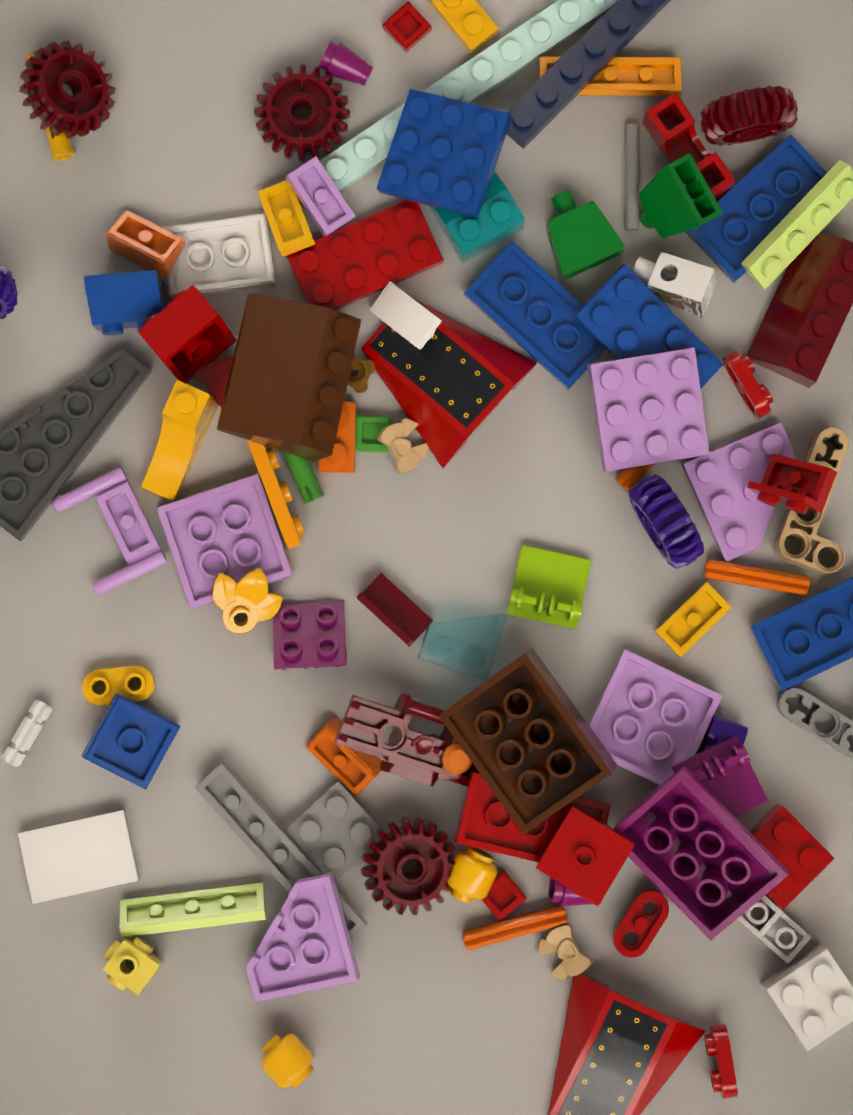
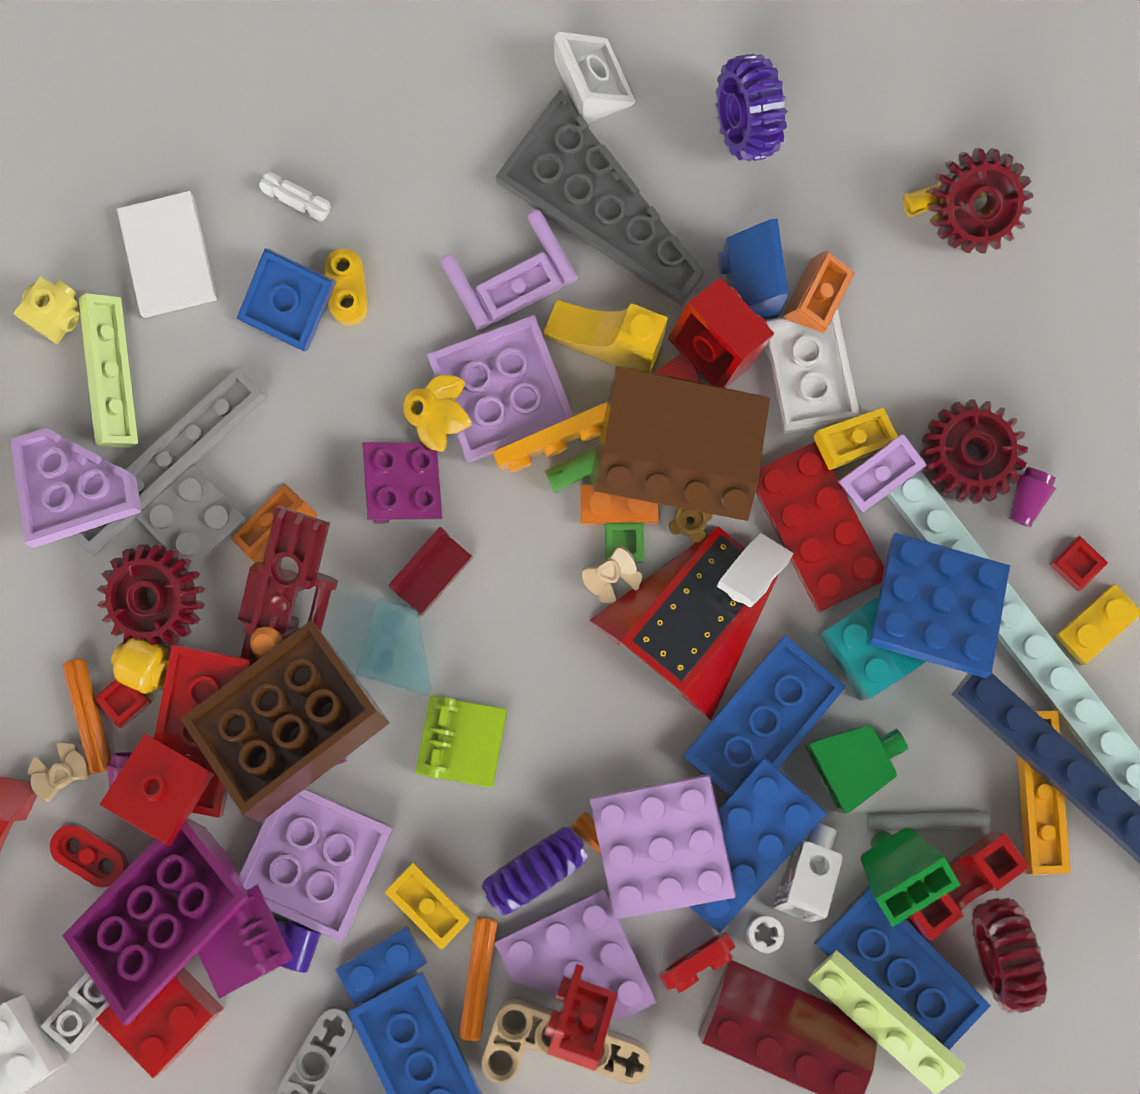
camera: 90 degrees right, 5 degrees down
(735, 329) = (761, 946): none -> white bush
(743, 662) = (381, 965): none -> blue plate

